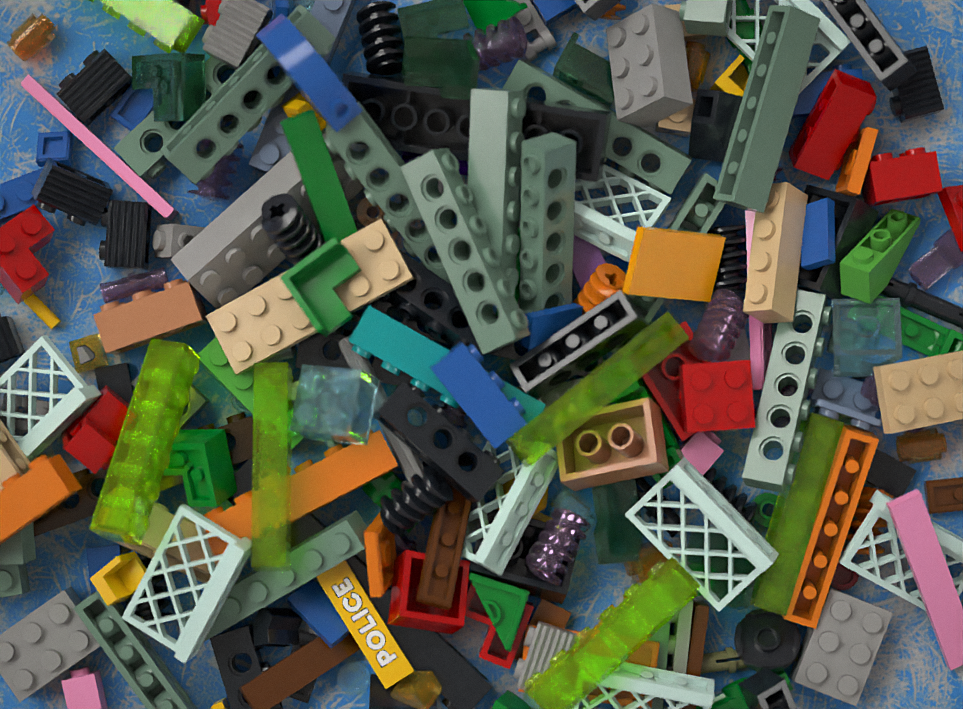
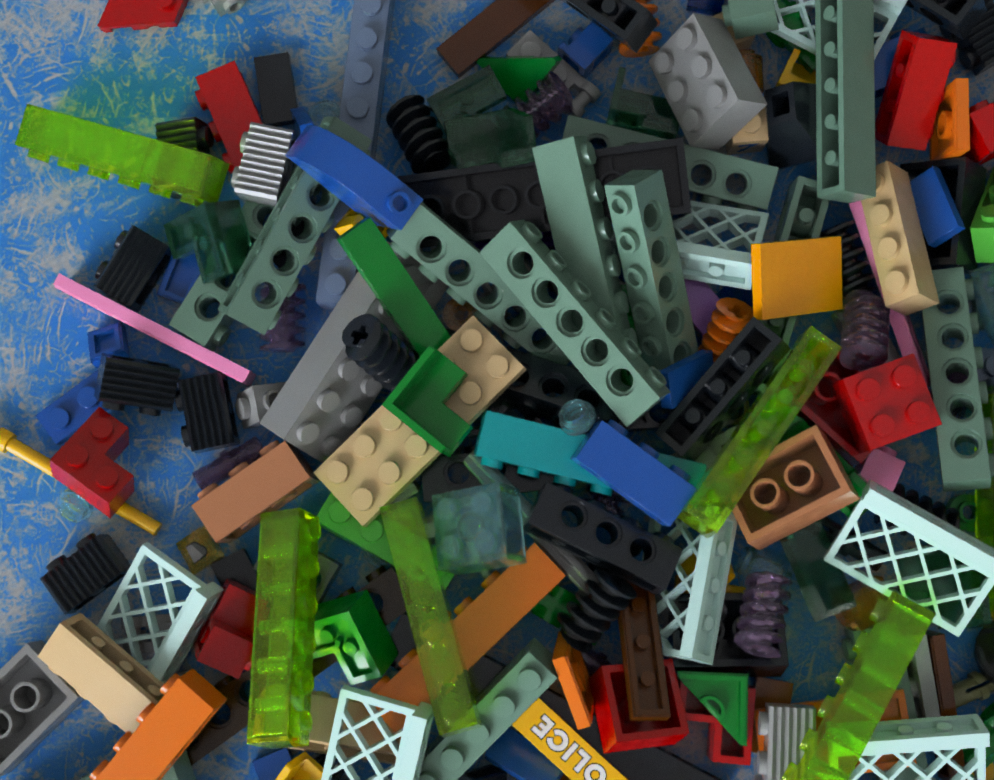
camera: 10 degrees left, 5 degrees down
(32, 36) = (54, 235): clear orange brick -> none
(444, 333) = (576, 417): none -> clear light blue plate

